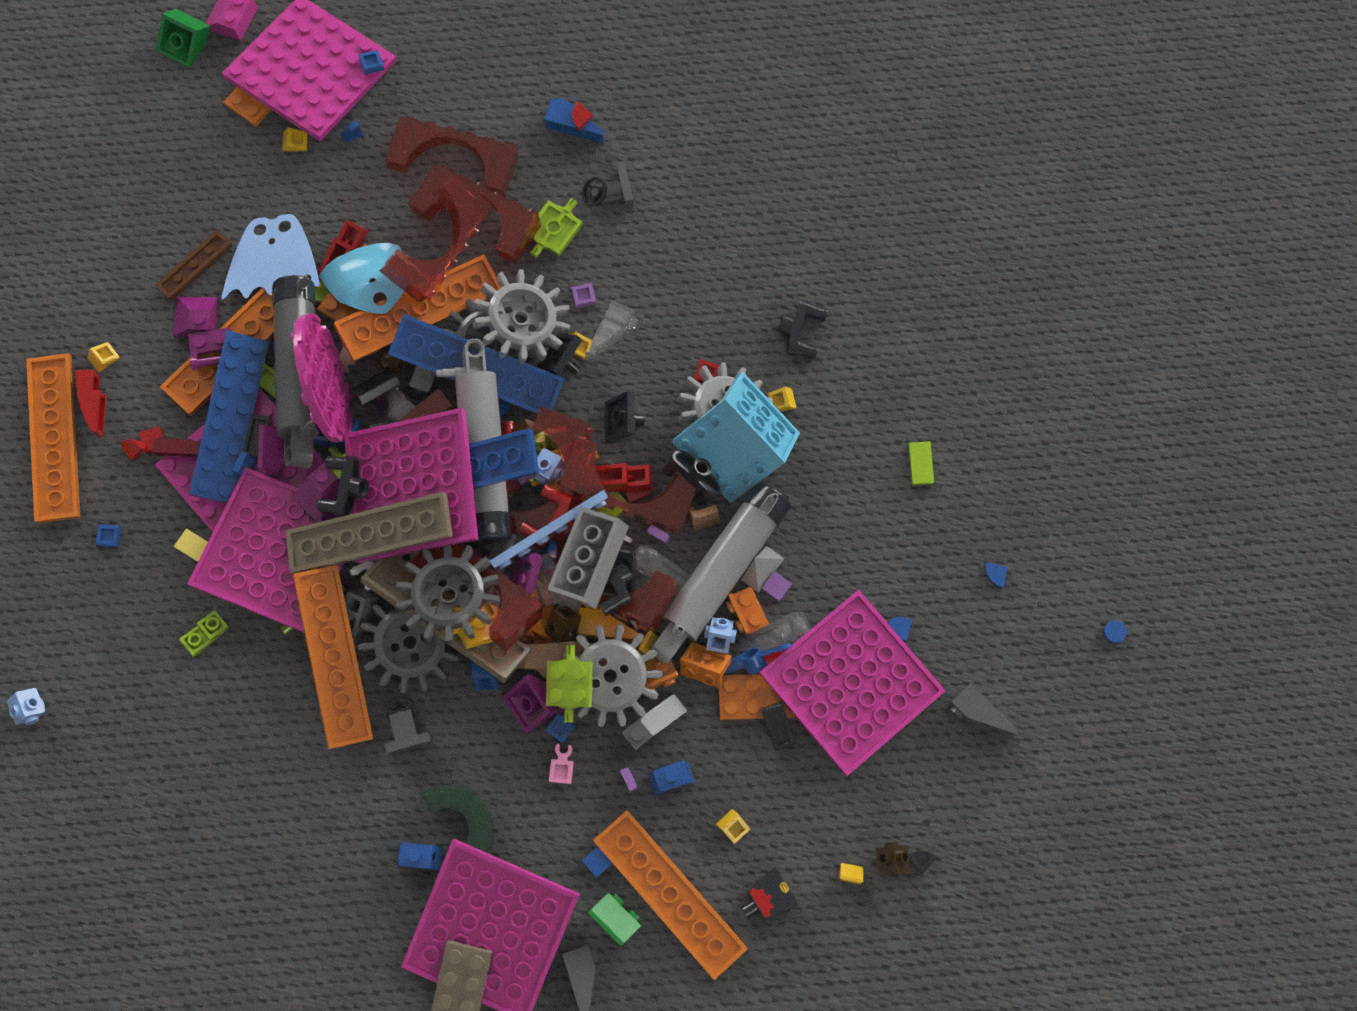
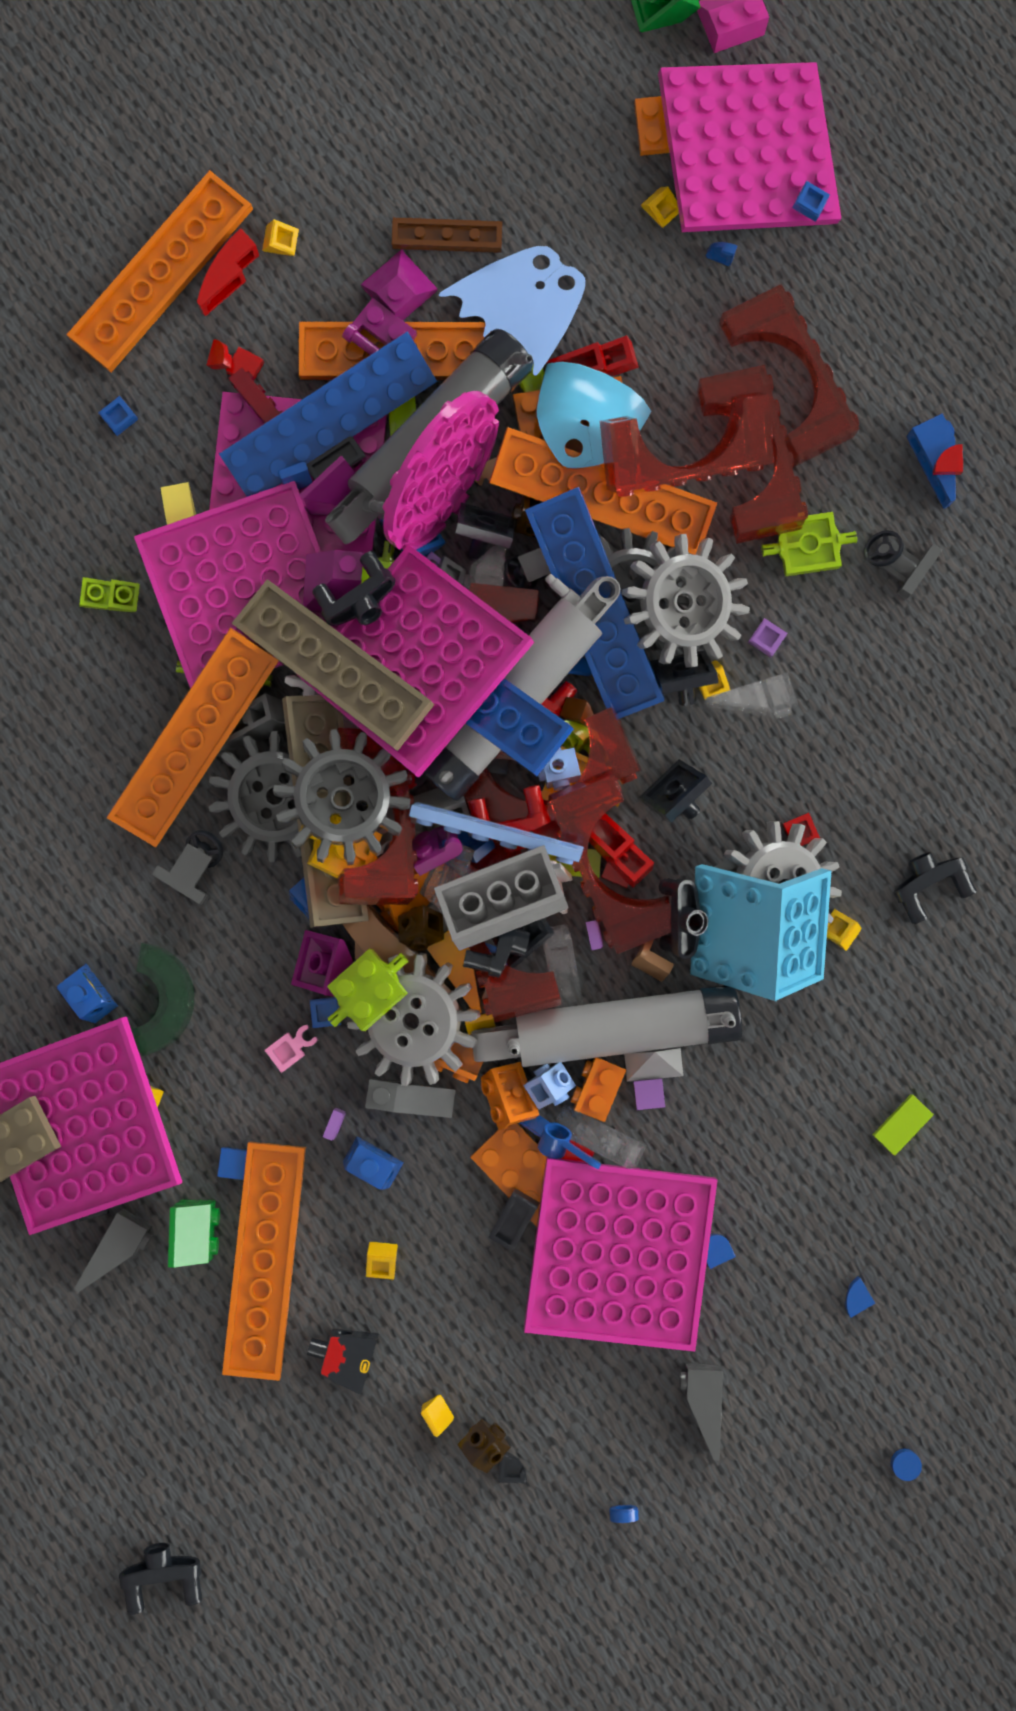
camera: 45 degrees right, 10 degrees up
(1003, 815) = (623, 1513): none -> blue tile

